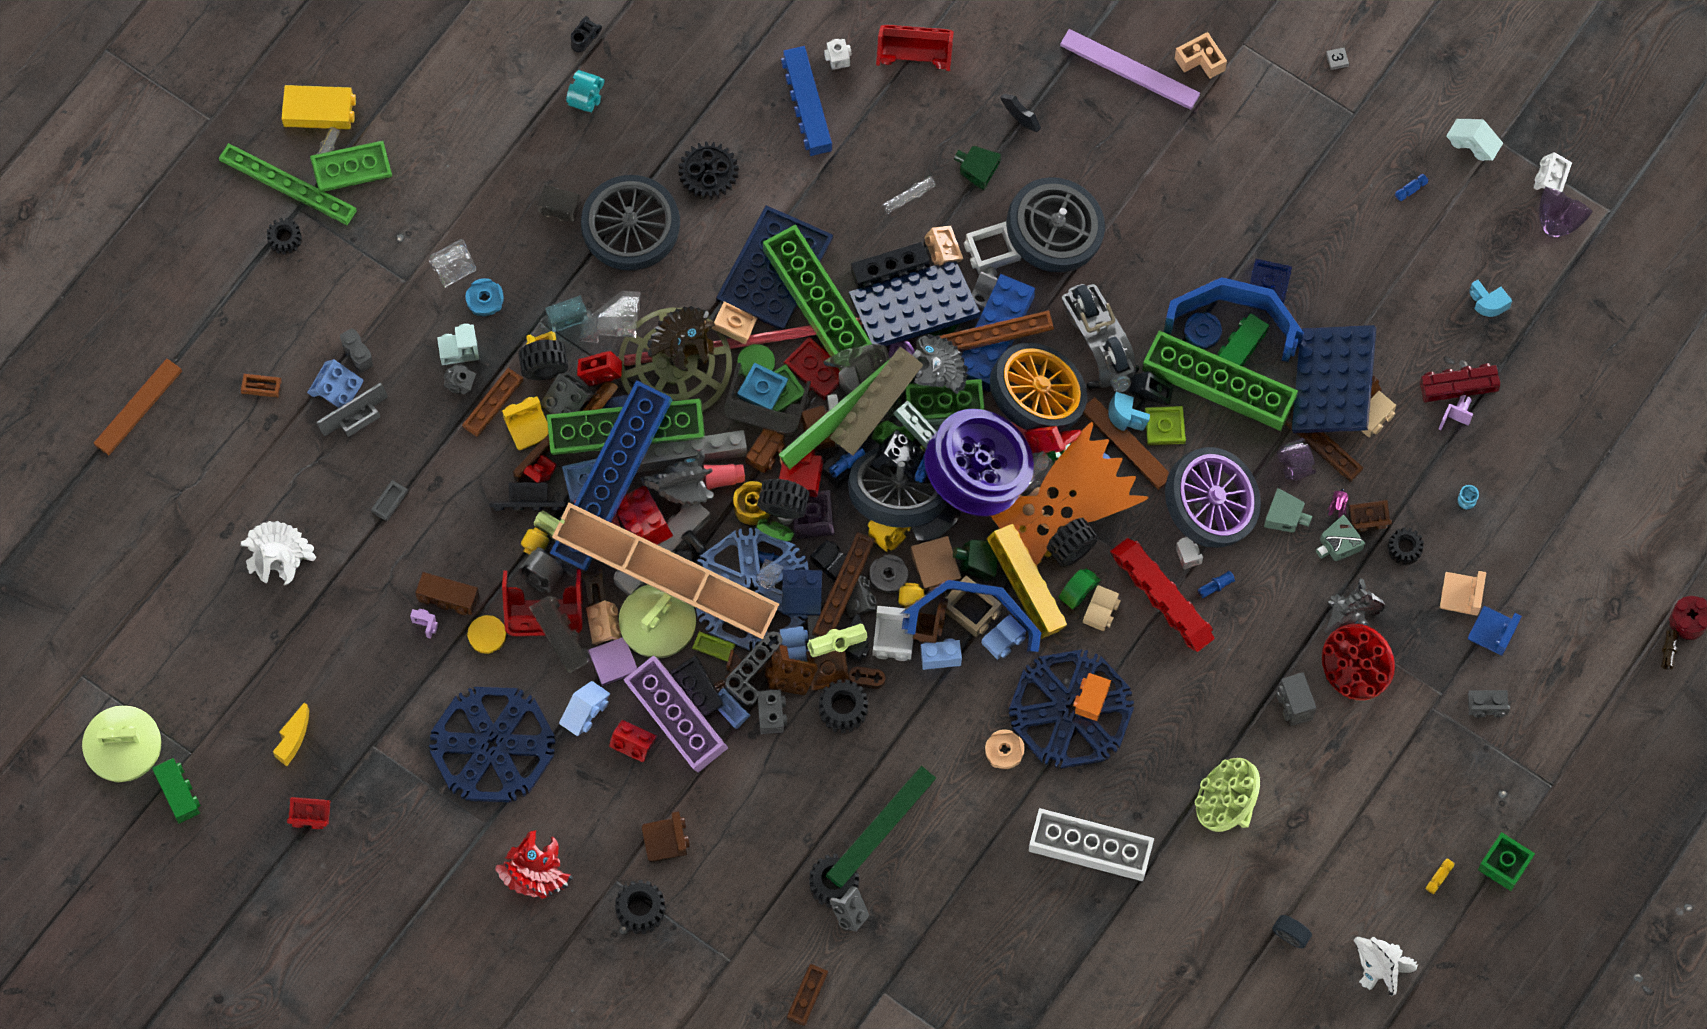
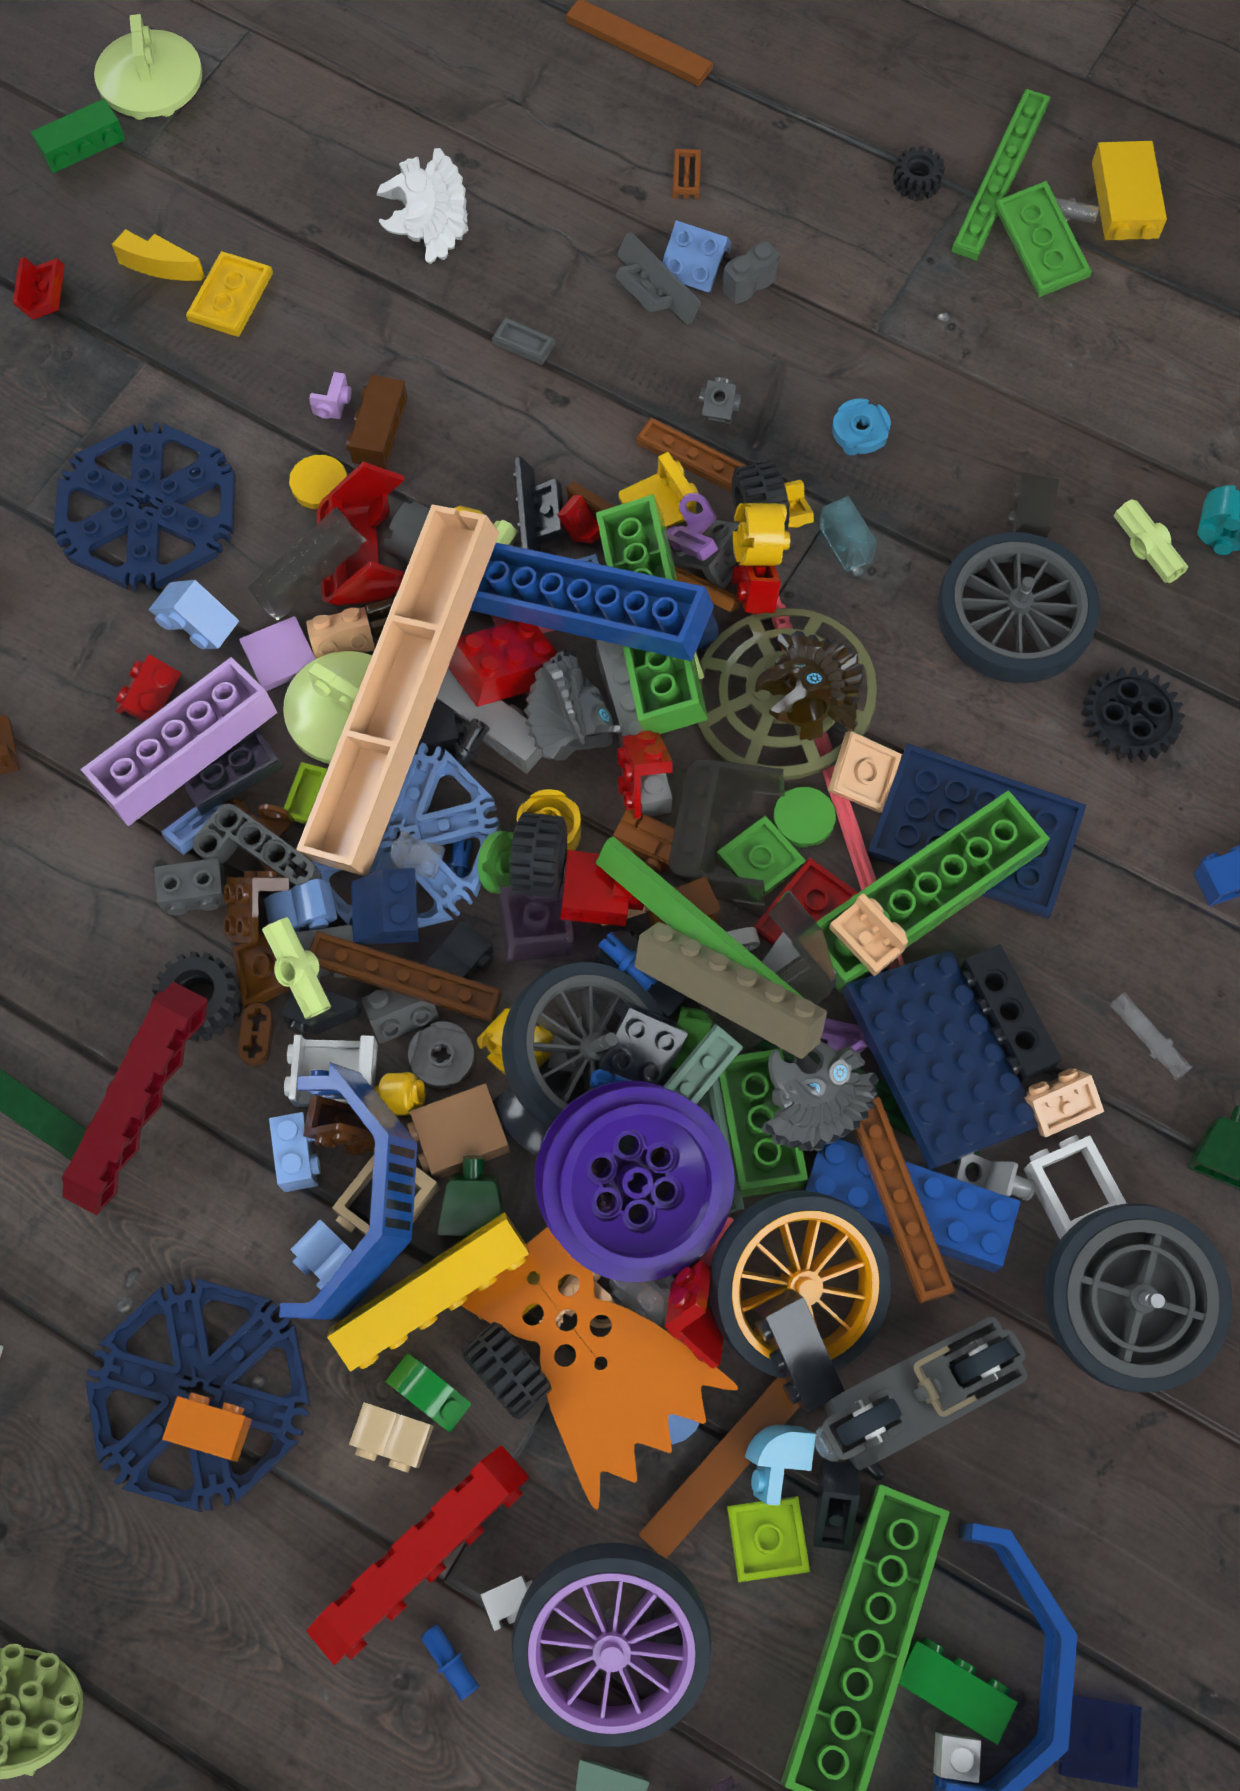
camera: 85 degrees right, 0 degrees up
(325, 690) = (229, 294): none -> yellow tile
(452, 263) = (909, 375): clear bracket -> none
(458, 347) = (774, 397): light aqua brick -> none
(562, 402) = (690, 538): none -> medium lavender piece
(579, 357) = (760, 534): none -> yellow brick
(589, 140) = (1150, 541): none -> yellowish green piece
(614, 318) = (847, 598): clear brick -> none
(723, 475) = (596, 777): coral plant -> none
(725, 442) = (640, 756): none -> red bracket
(762, 387) = (756, 825): dark azure tile -> none
(848, 325) = (870, 934): none -> light nougat bracket
(905, 733) = (133, 1097): none -> dark red brick
(1001, 760) = (108, 1264): light nougat plate -> none
(1073, 391) = (798, 1350): none -> black brick
(1203, 330) = (973, 1604): blue tile -> none
(1273, 346) = (957, 1757): none -> white brick

